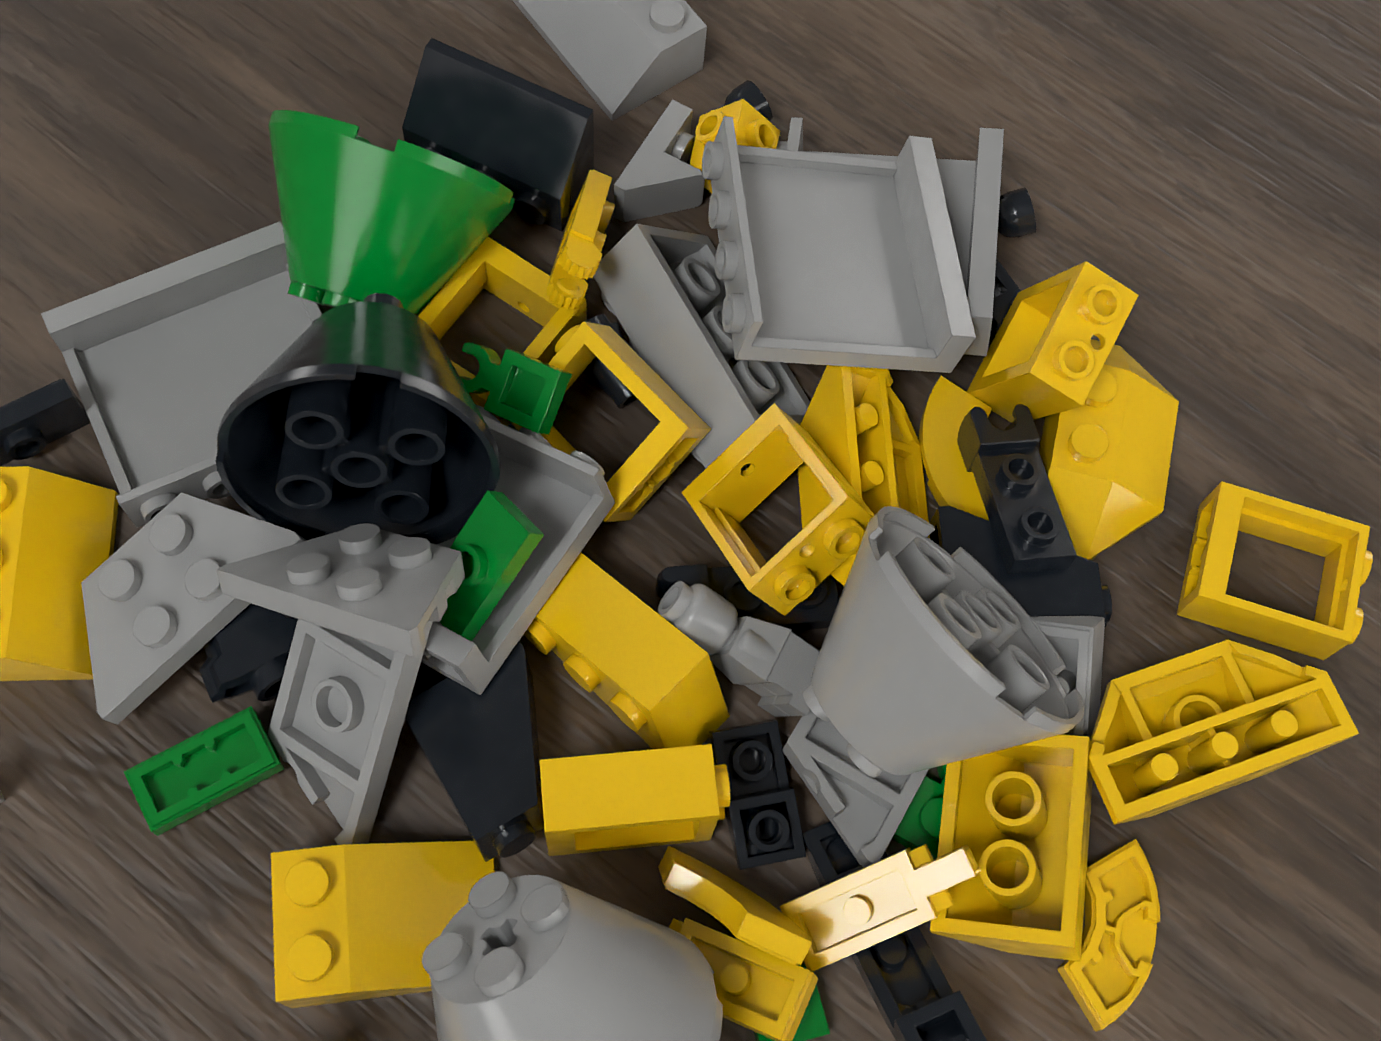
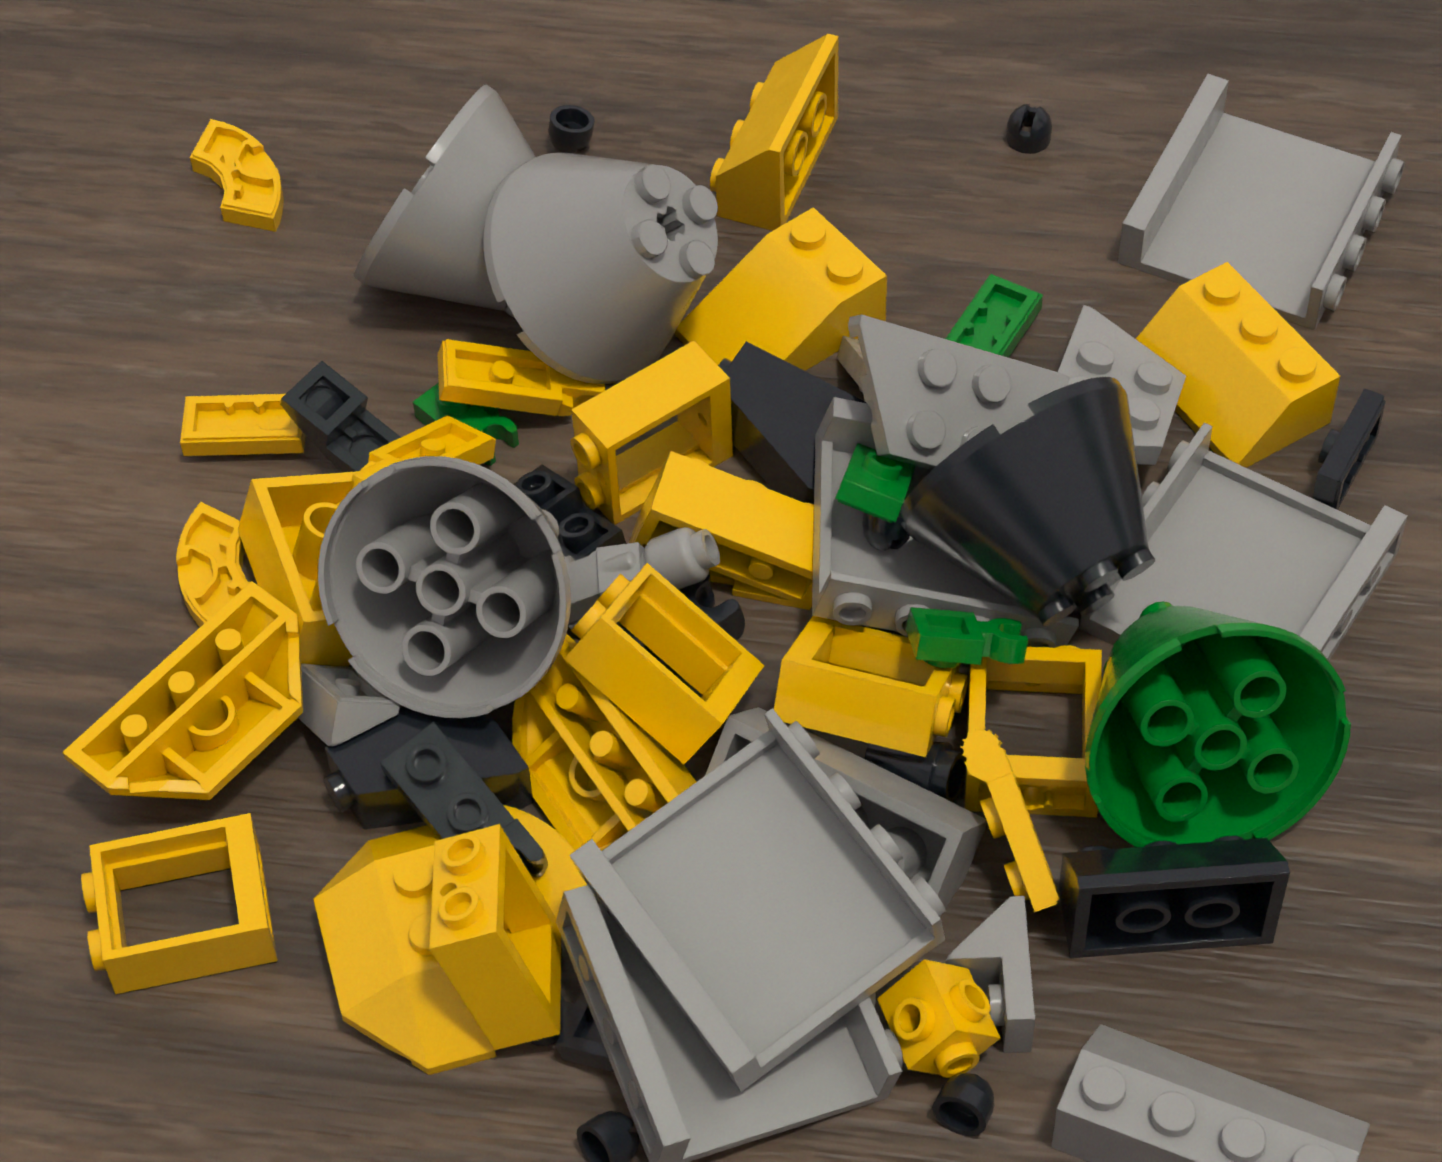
camera: 160 degrees right, 15 degrees down
(735, 906) = (519, 415): yellow tile -> none

